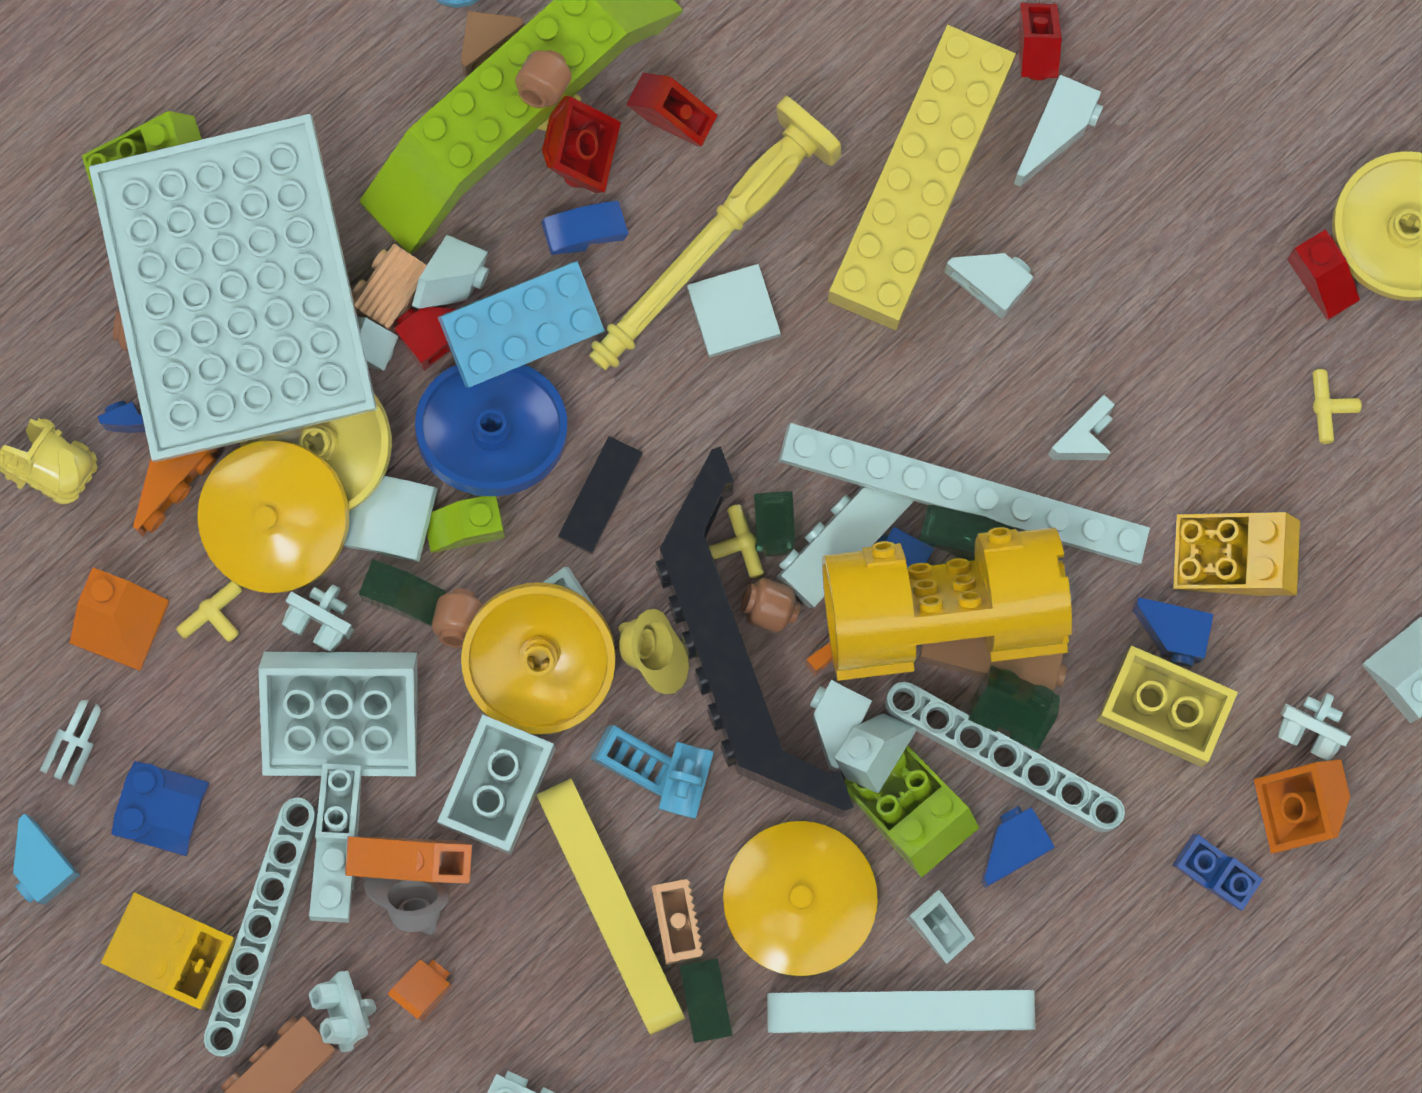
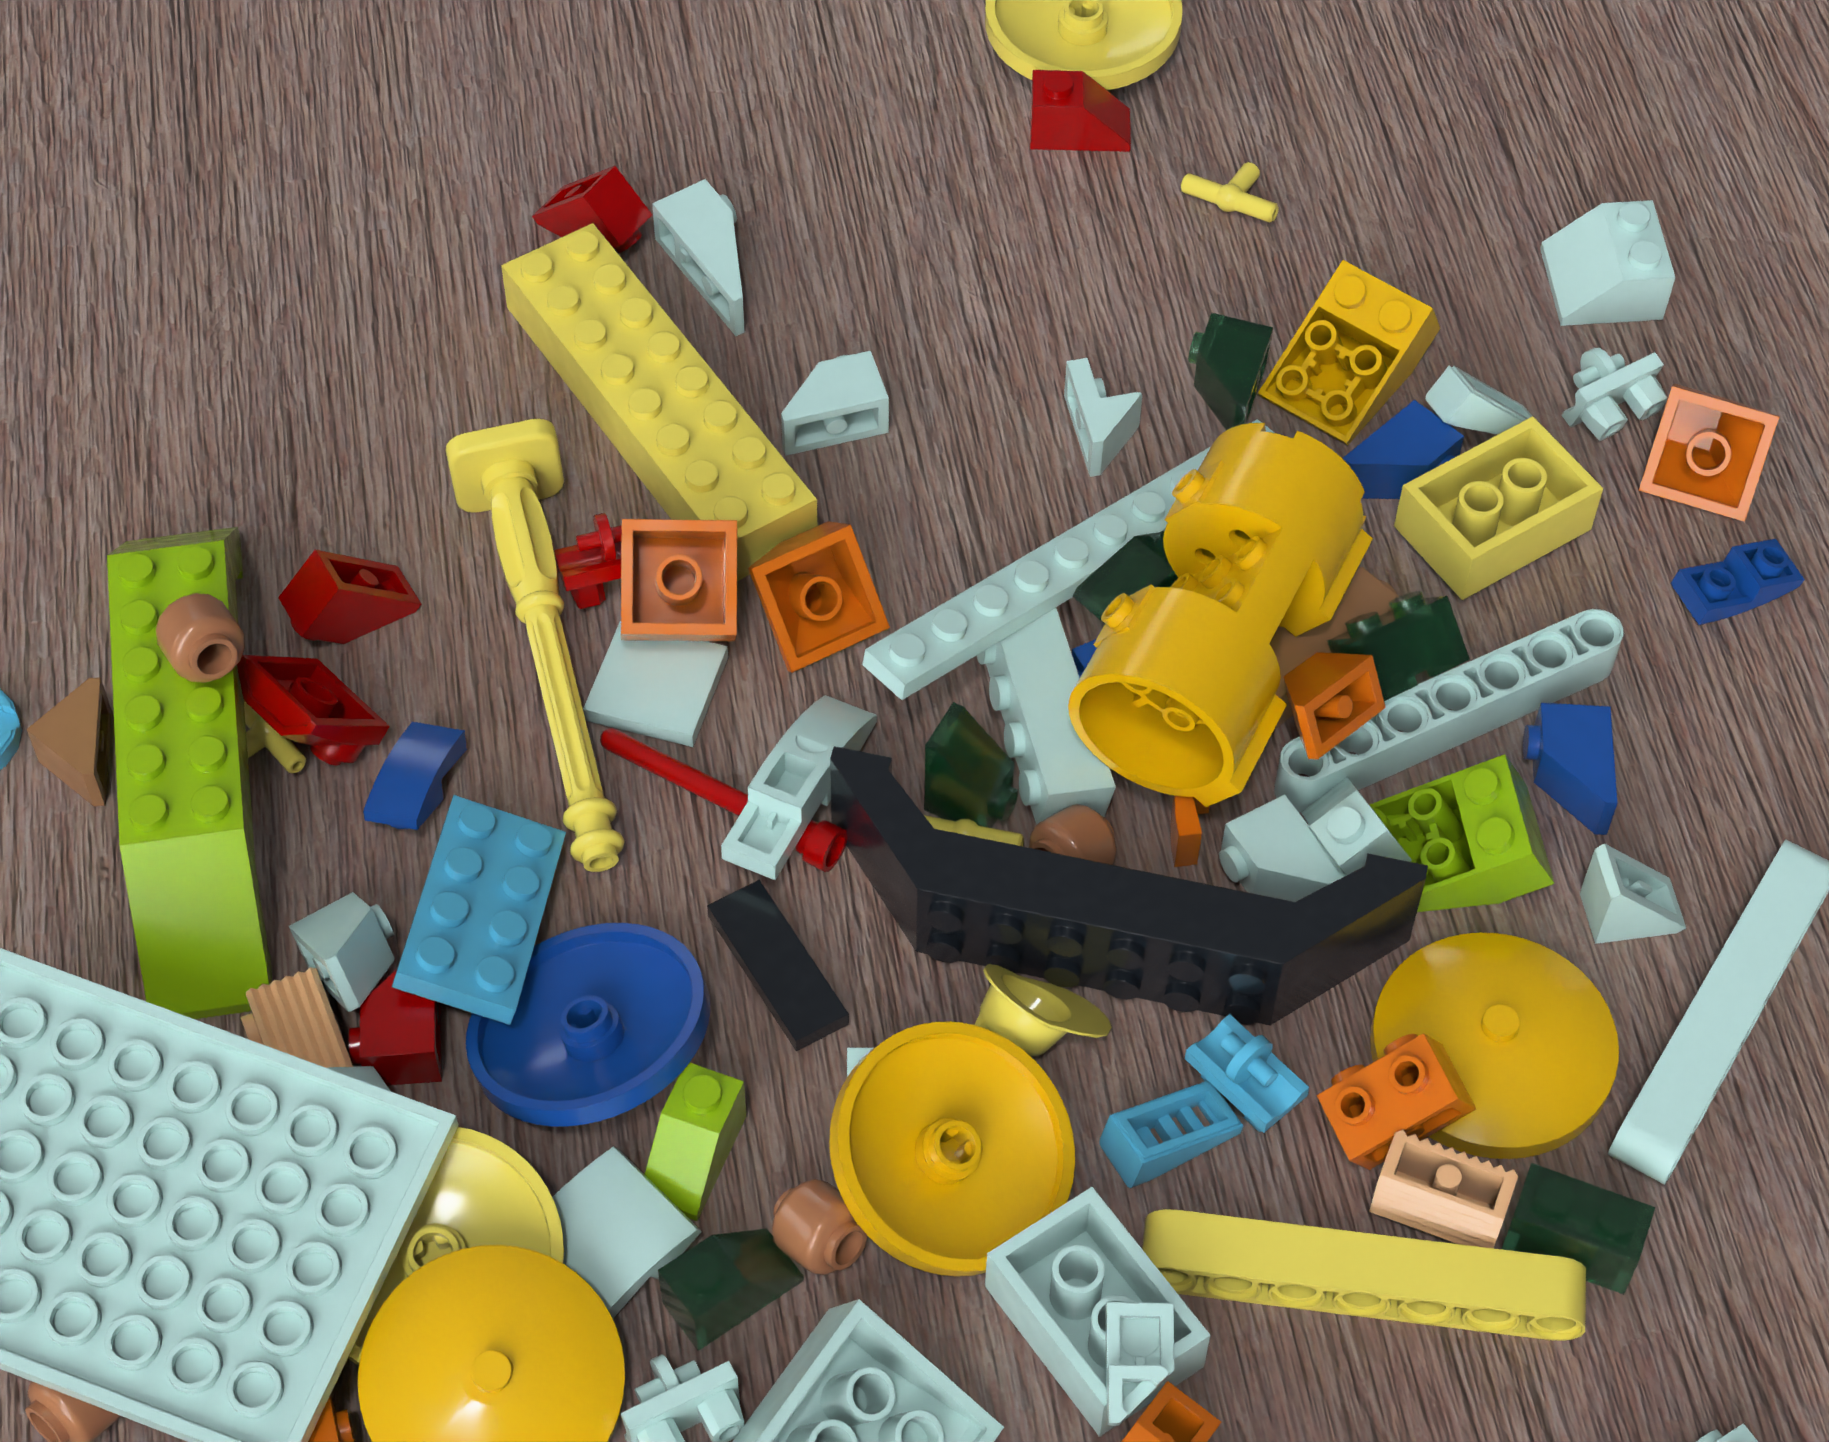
camera: 55 degrees left, 25 degrees down
(470, 823) = (1137, 1354): none -> light aqua slope
(686, 464) = (820, 843): none -> red piece
(702, 431) = (793, 785): none -> light aqua slope
(713, 868) = (1404, 1090): none -> orange brick
(784, 285) = (678, 580): none -> orange brick
(788, 232) = (591, 562): none -> red hips
(845, 358) = (818, 594): none -> orange slope
(939, 690) = (1332, 698): none -> orange slope
(1177, 490) = (1230, 366): none -> clear green slope
(1222, 645) = (1473, 404): none -> light aqua slope

